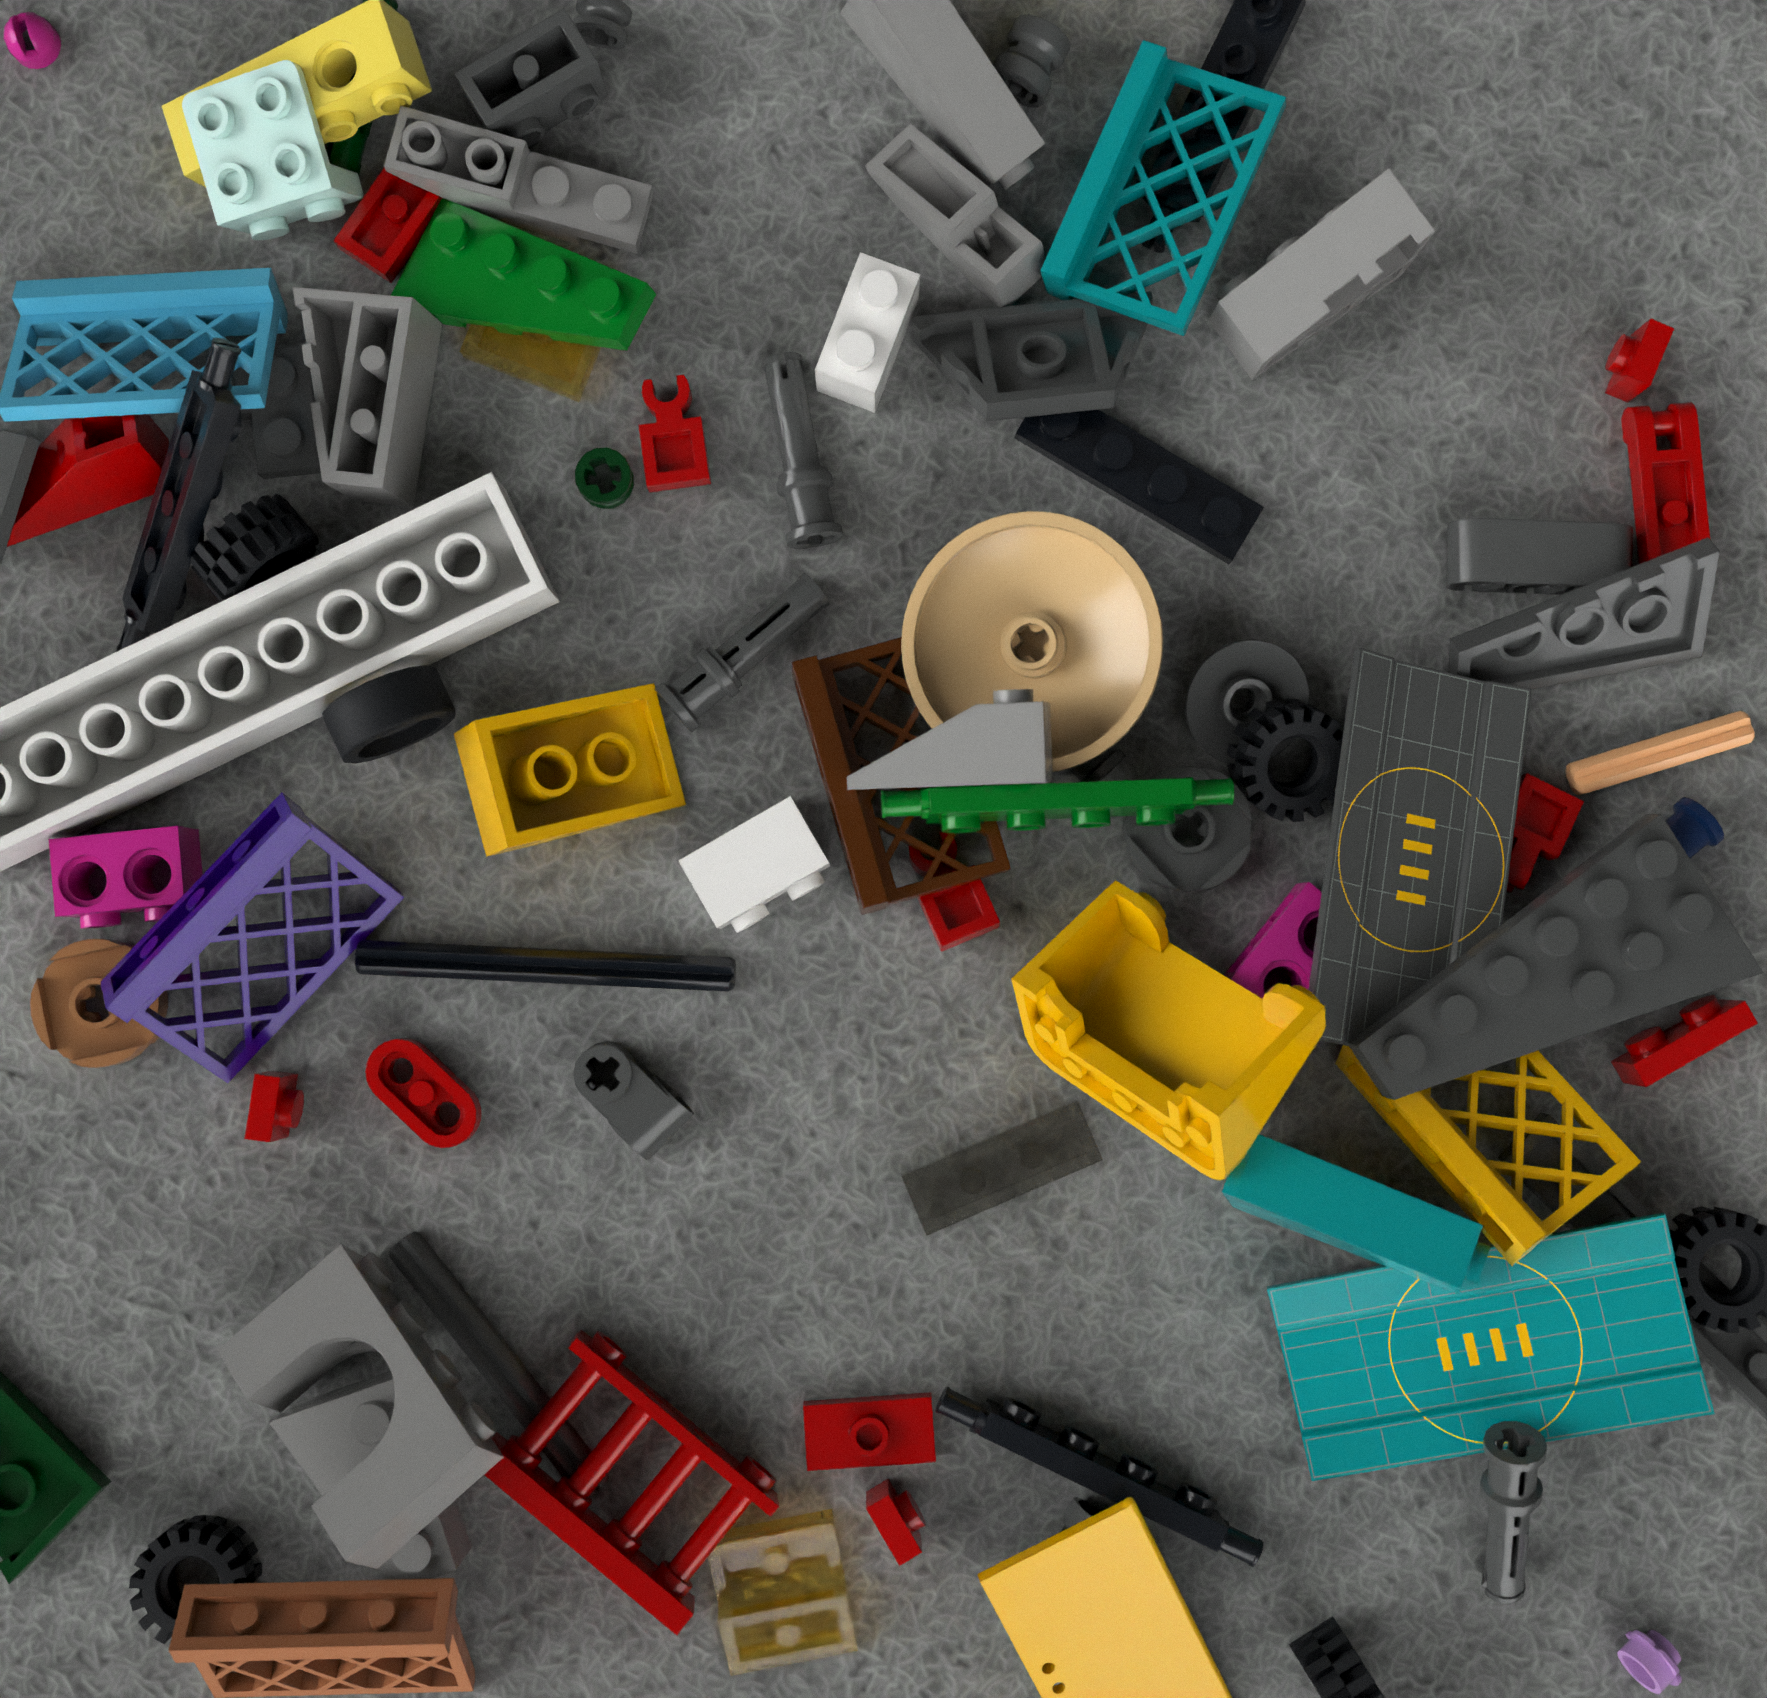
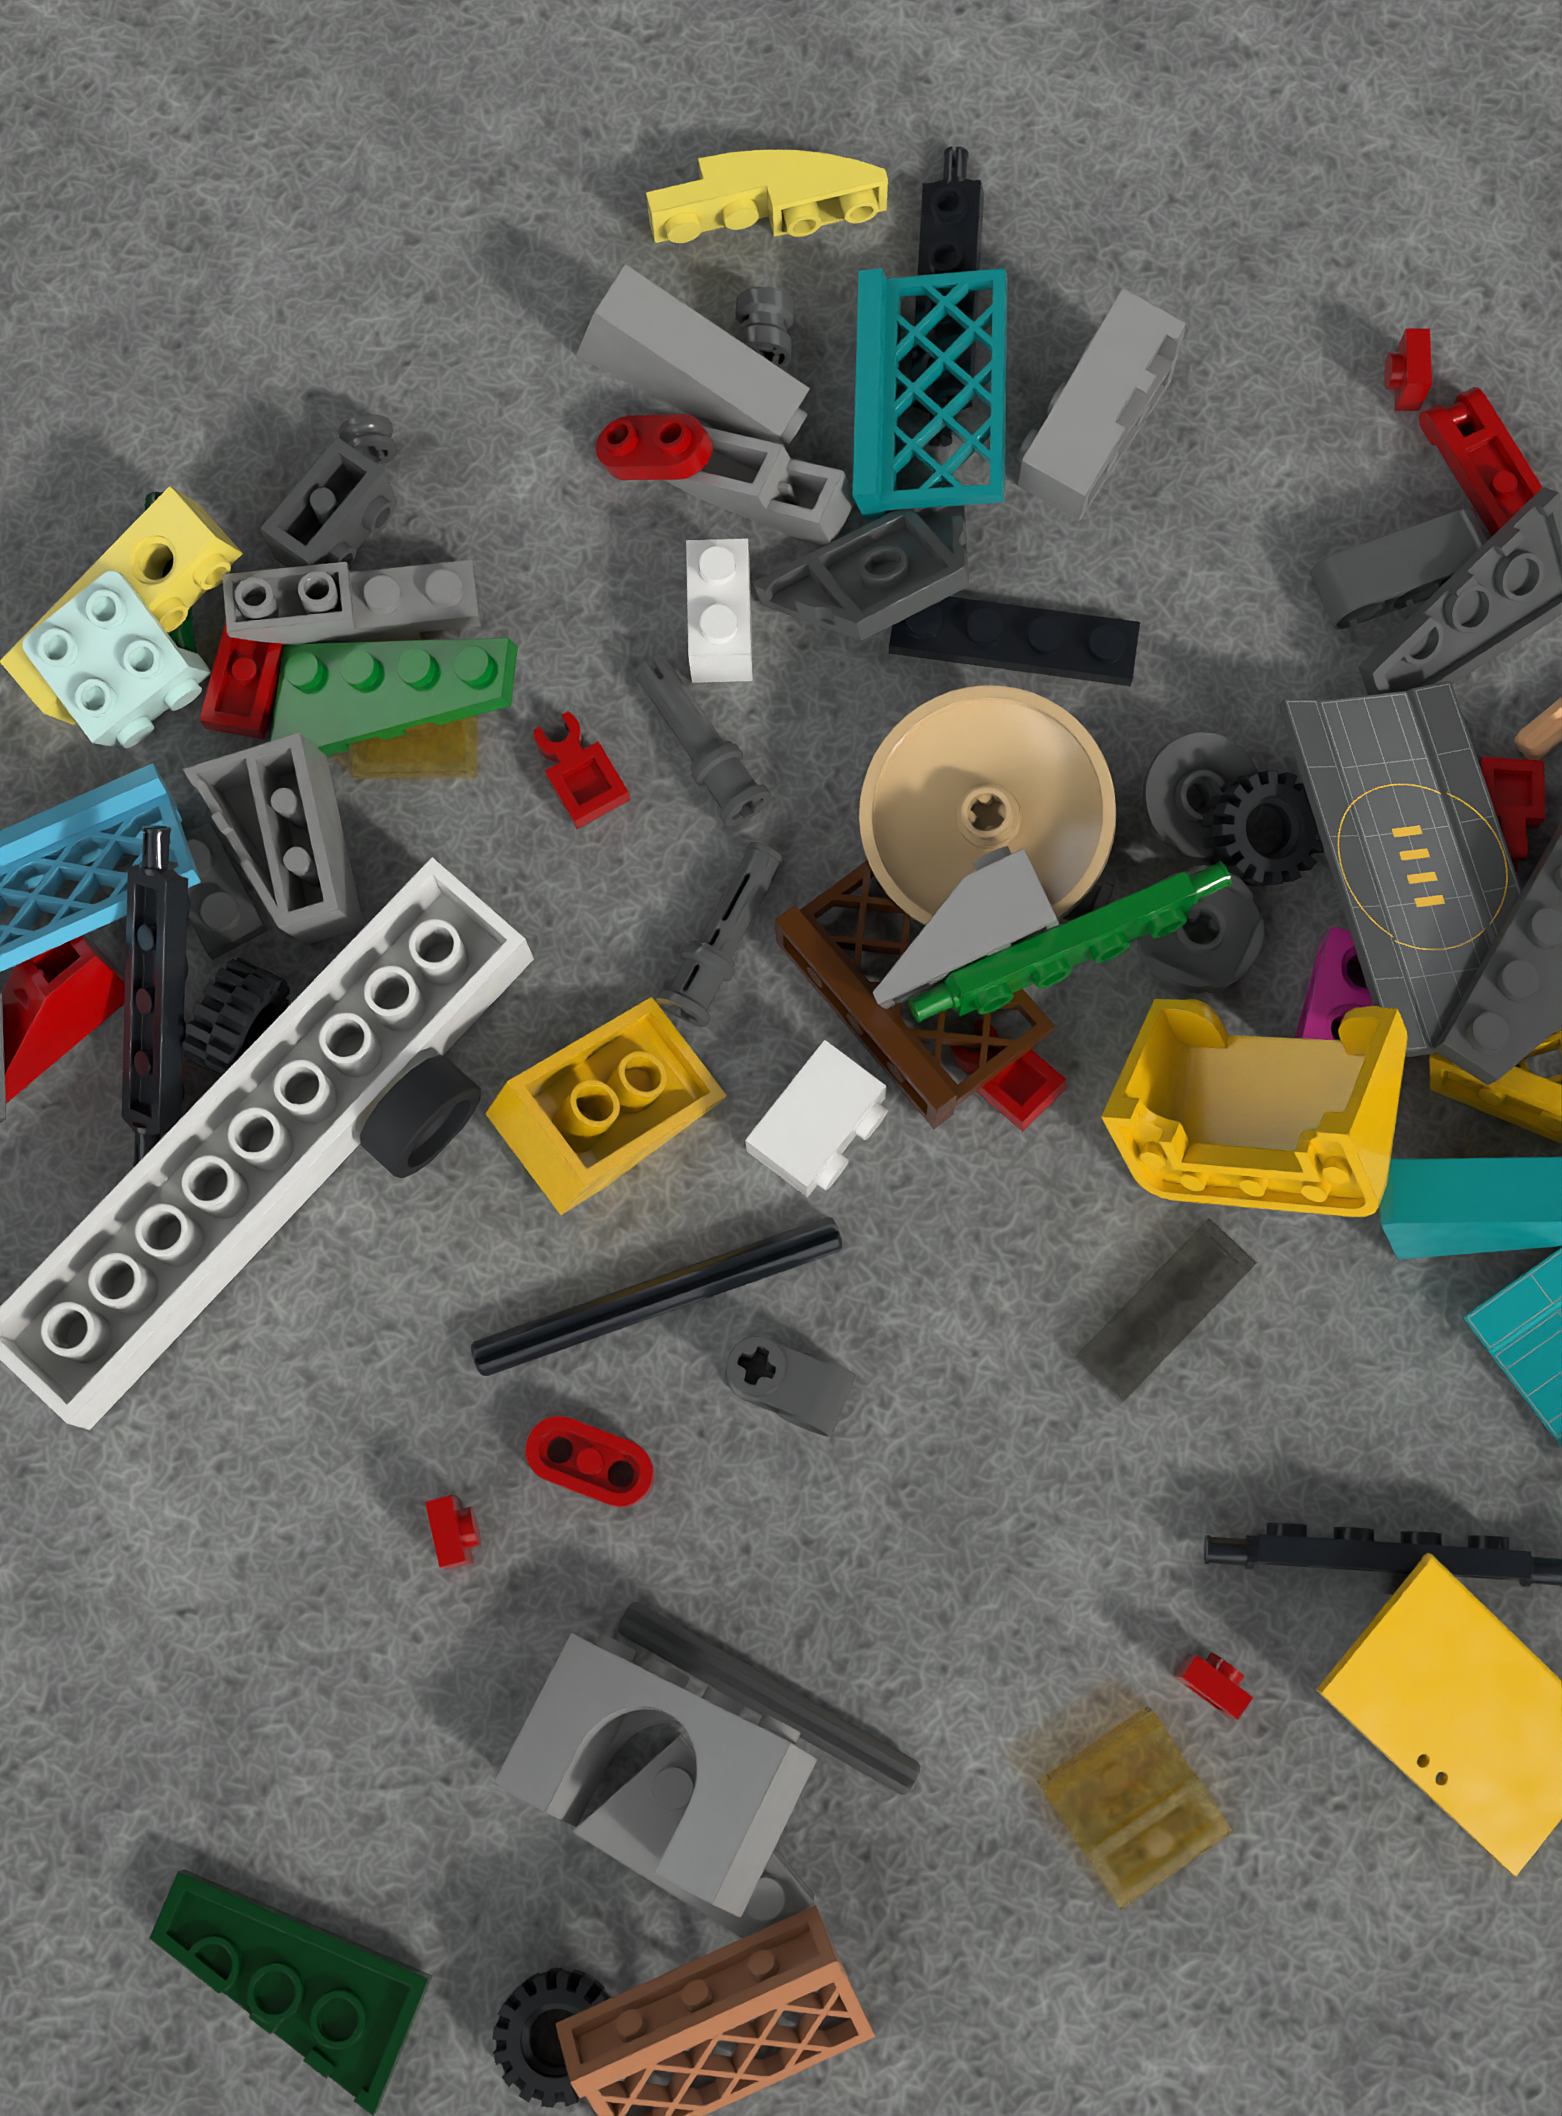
camera: 15 degrees left, 10 degrees down
(61, 1010) = (208, 1495): medium nougat plate -> none
(128, 867) = (222, 1352): dark pink brick -> none
(202, 919) = (319, 1369): dark purple fence -> none
(616, 1545) = (957, 1816): red fence -> none
(617, 464) = (536, 815): dark green bush -> none
(859, 137) = (645, 450): none -> red plate
(869, 1431) = (1151, 1613): red plate -> none

